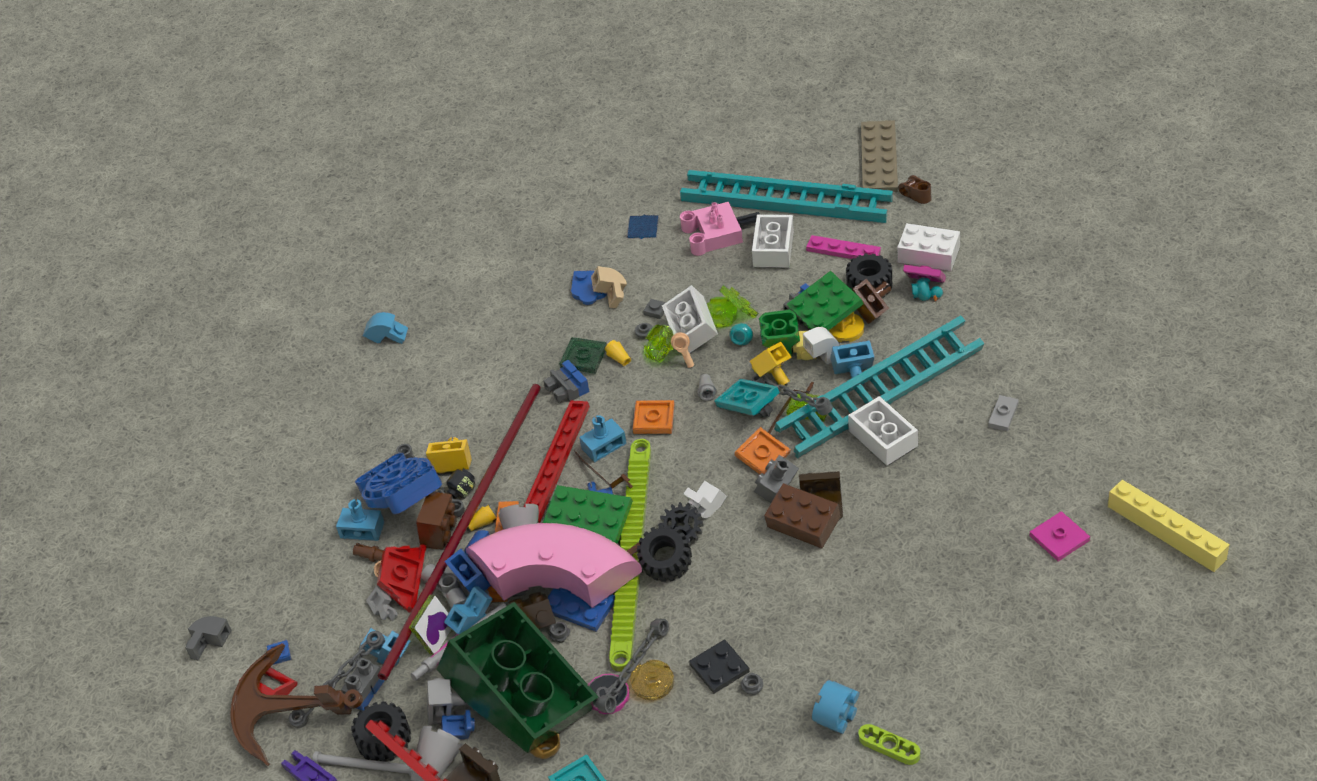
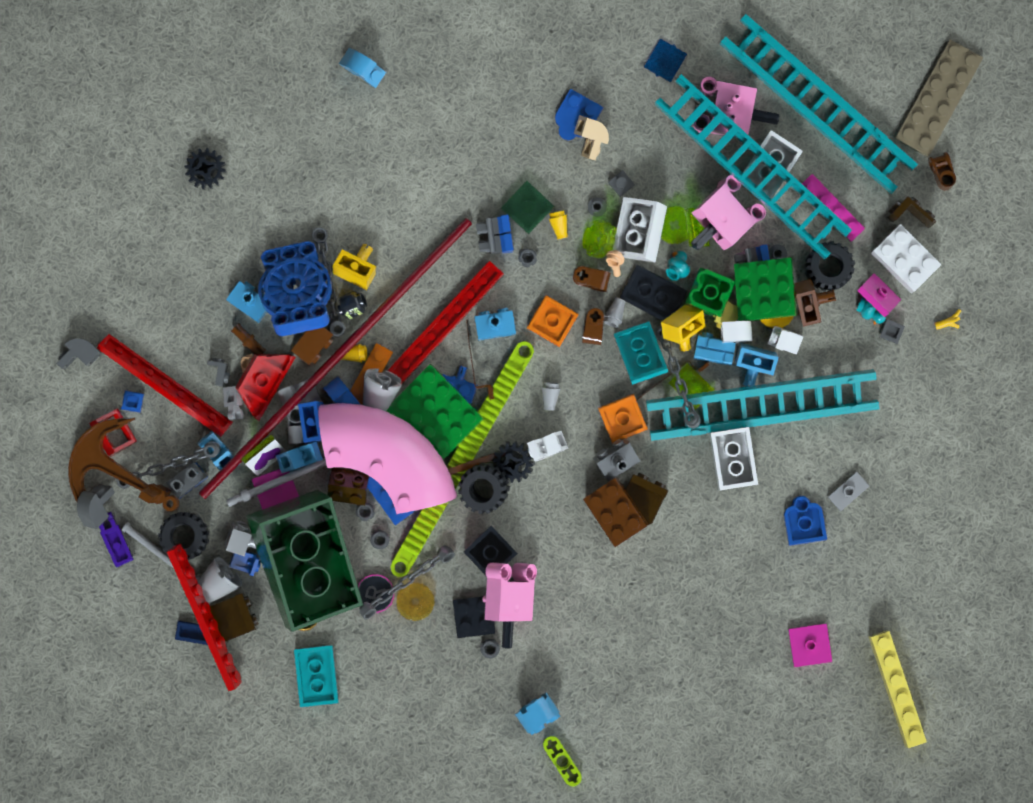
camera: 20 degrees right, 40 degrees up
(271, 749) = (91, 508): none -> dark grey brick
(274, 452) = (214, 166): none -> black gear
(297, 622) = (164, 385): none -> red plate
(354, 582) = (222, 375): none -> dark grey bracket
(586, 642) = (379, 533): none -> dark grey plate
(604, 386) = (522, 257): none -> dark grey plate
(671, 373) = (596, 278): none -> reddish brown piece
(684, 465) = (550, 395): none -> light grey cone
(692, 401) = (593, 330): none -> reddish brown piece
(702, 600) = (490, 548): none -> black brick
(729, 363) = (652, 293): none -> black tile
(742, 619) = (509, 599): none -> bright pink piece
(757, 279) = (724, 216): none -> bright pink piece
(759, 226) = (748, 143): none -> teal ladder
(811, 370) = (713, 349): none -> dark azure brick
(868, 332) = (785, 340): none -> white brick
(911, 212) = (914, 208): none -> dark brown bracket
(954, 296) = (892, 331): none -> dark grey plate
(982, 450) = (804, 522): none -> blue plate
(996, 271) = (949, 321): none -> yellow bar

